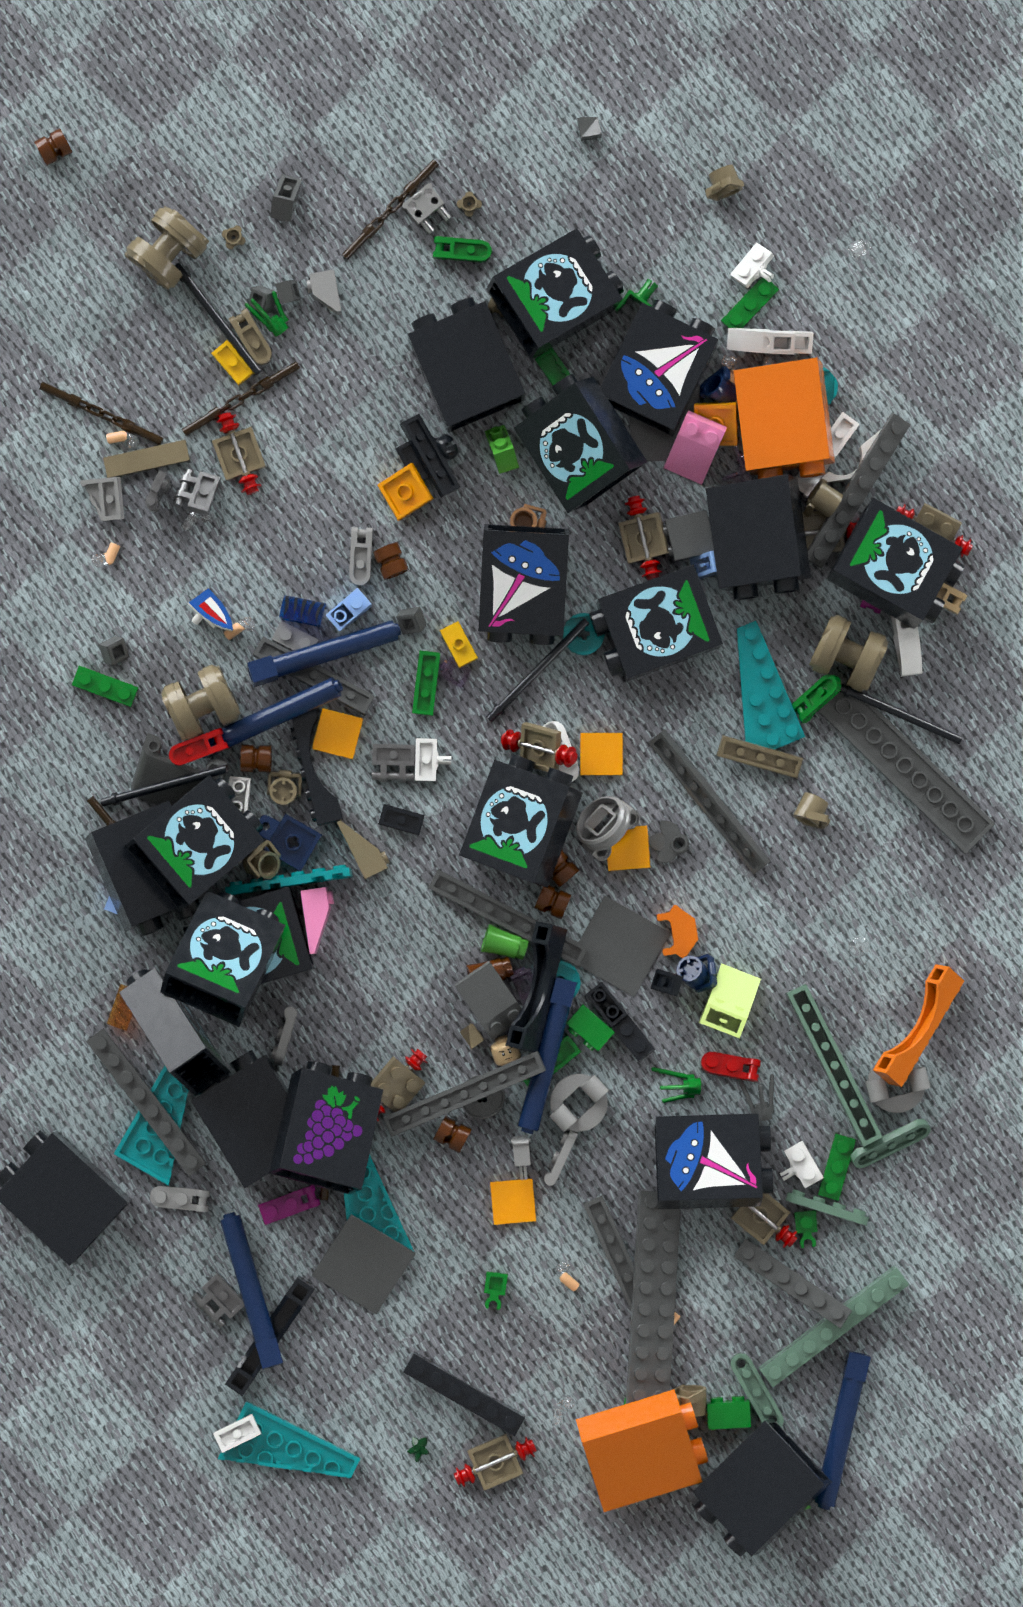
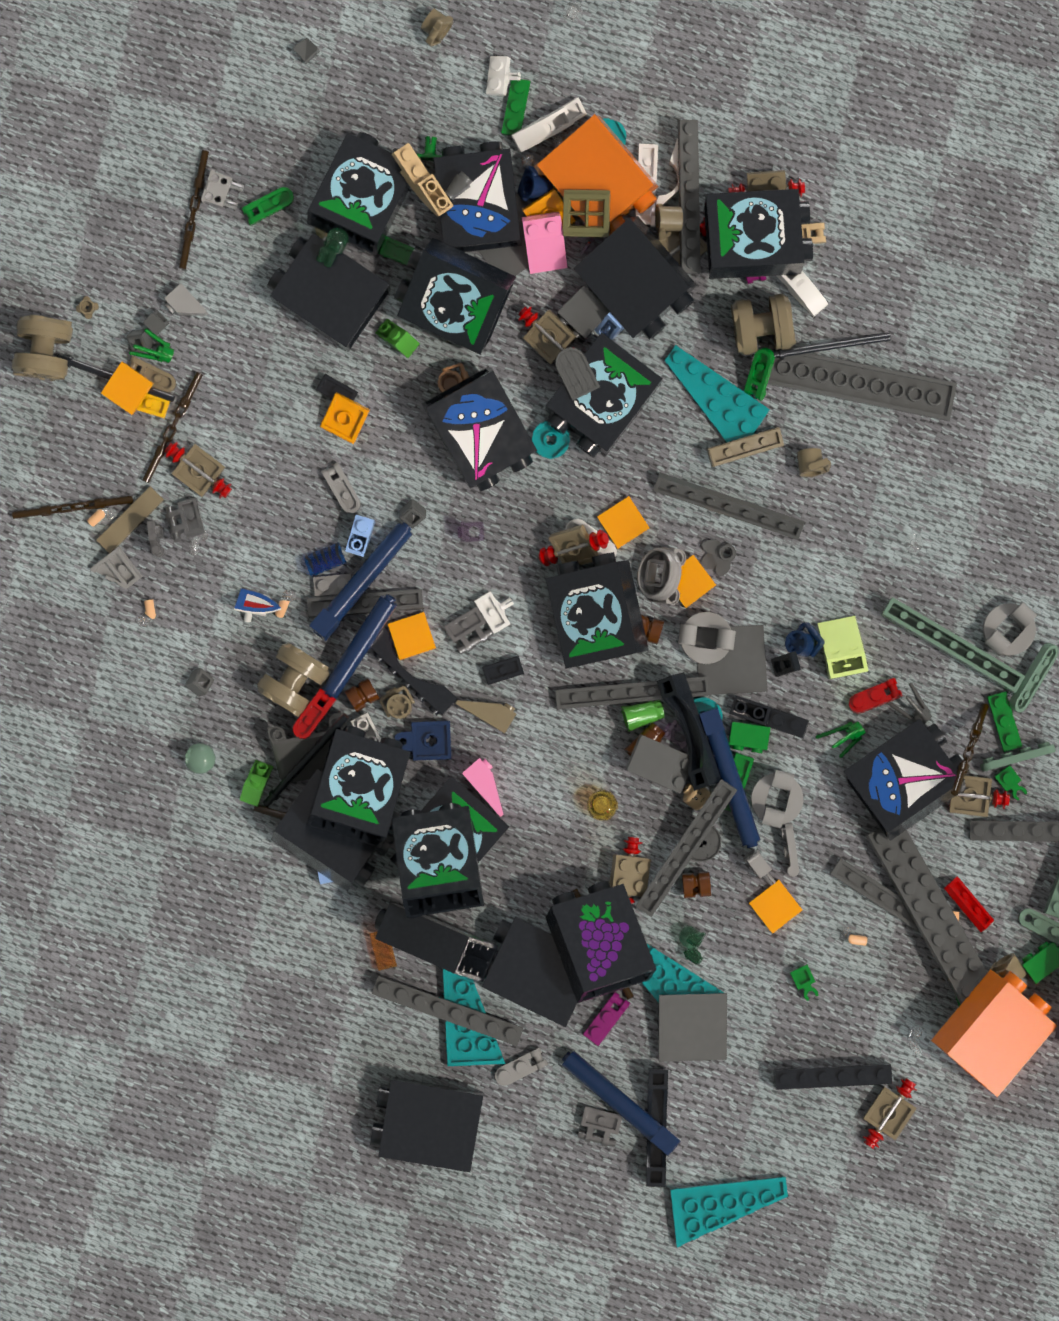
camera: 25 degrees left, 0 degrees up
(68, 721) = (200, 758): none -> sand green helmet
(105, 686) = (210, 714): green plate -> none
(105, 777) = (256, 783): none -> bright green slope
(221, 335) = (127, 388): none -> light orange tile
(237, 1433) = (679, 1217): white plate -> none
(262, 862) = (419, 770): dark tan piece -> none
(284, 1035) = (519, 891): light grey plate -> none
(285, 198) = (108, 252): dark grey slope -> none
(297, 878) = (452, 766): teal wing -> none
(391, 561) = (367, 477): reddish brown wheel -> none
(412, 1004) = (602, 805): none -> clear yellow helmet
(414, 1182) = (691, 939): none -> clear green piece
(418, 1448) = (824, 1140): dark green plant -> none
(426, 683) = (454, 554): green plate -> none
(432, 454) = (347, 375): black plate -> none
(458, 644) = (460, 508): yellow plate -> none
(472, 1035) = (663, 800): dark tan slope -> none
(475, 204) = (246, 167): dark tan plate -> none
(498, 324) = (334, 244): none -> clear green piece
(499, 708) = (523, 537): black bar -> none
(553, 901) = (659, 658): reddish brown wheel -> none
(615, 317) = (421, 181): none -> tan slope
(623, 925) = (724, 641): none -> light grey piece
(645, 587) = (576, 373): none -> dark grey window
(648, 343) = (458, 185): none -> dark grey cone
(683, 931) = (773, 618): orange piece -> none
(694, 1315) = (969, 904): none -> red plate
(740, 460) = (586, 195): none -> olive piece
(769, 1185) = (963, 766): none -> dark brown piece
(802, 1165) = (986, 740): white plate -> none
(940, 991) = (998, 539): orange arch -> none

